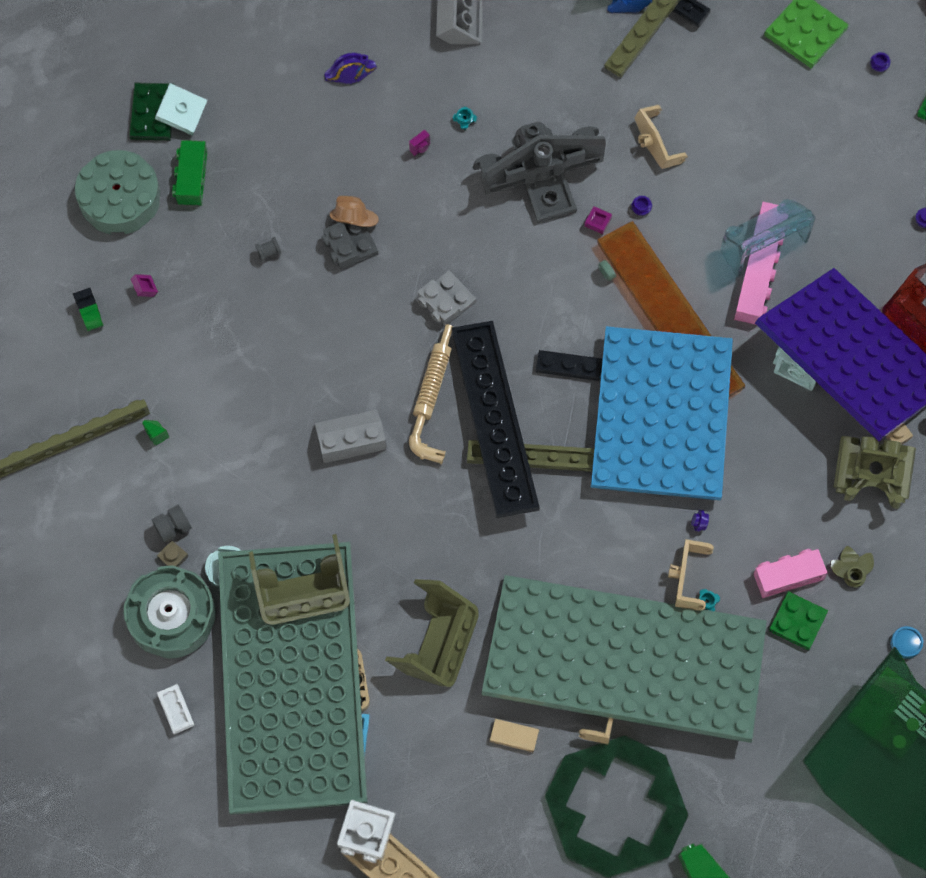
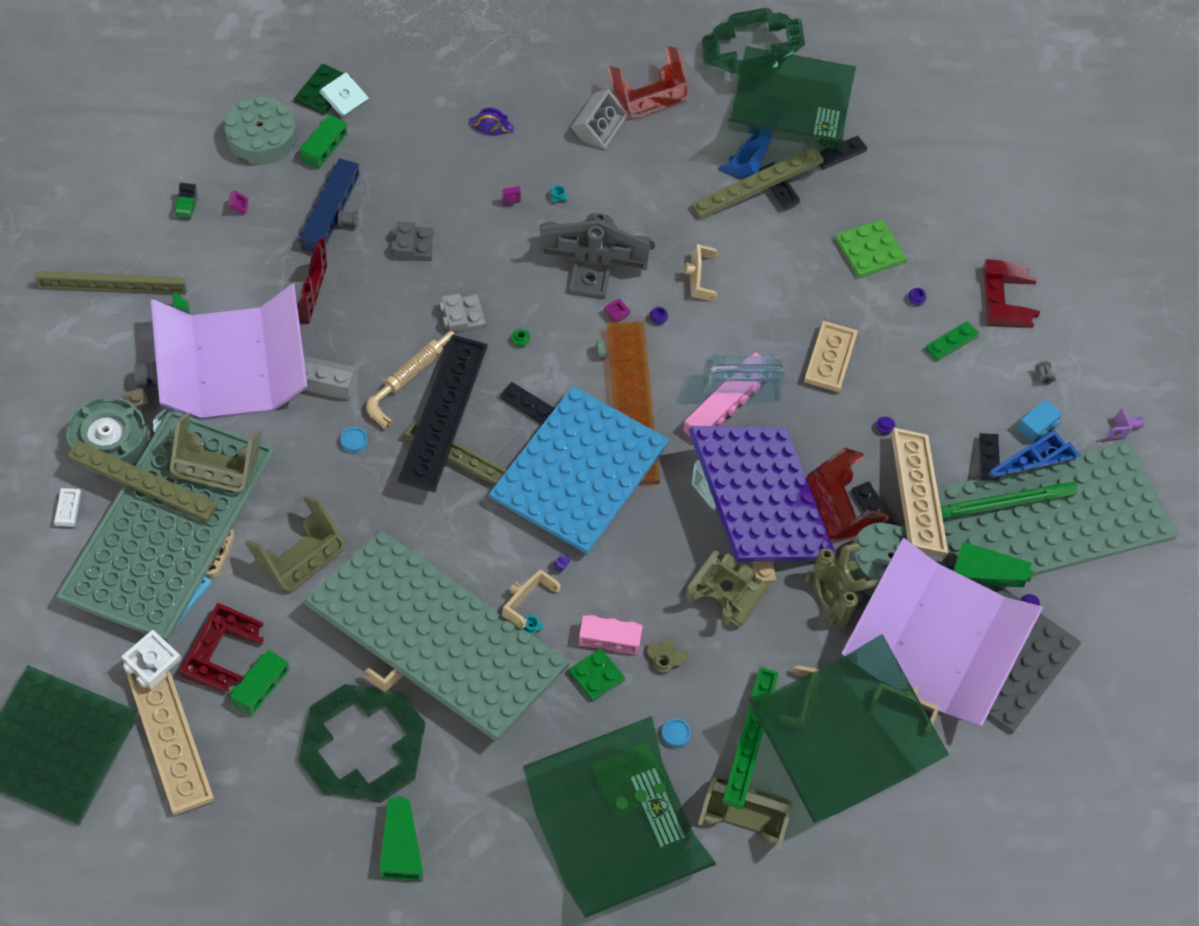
camera: 20 degrees right, 10 degrees down
(241, 243) = (330, 201): none -> dark blue brick
(241, 646) = (142, 481): none -> olive plate
(245, 462) = (229, 358): none -> lavender piece
(271, 324) = (312, 284): none -> dark red wedge
(353, 211) = (428, 220): medium nougat piece -> none
(408, 809) = (221, 621): none -> dark red wedge
(418, 490) = (354, 440): none -> dark azure piece
(481, 797) = (259, 682): none -> green brick
(514, 735) = (315, 651): tan tile -> none
(519, 302) = (521, 342): none -> green plate
(834, 168) = (831, 356): none -> tan plate

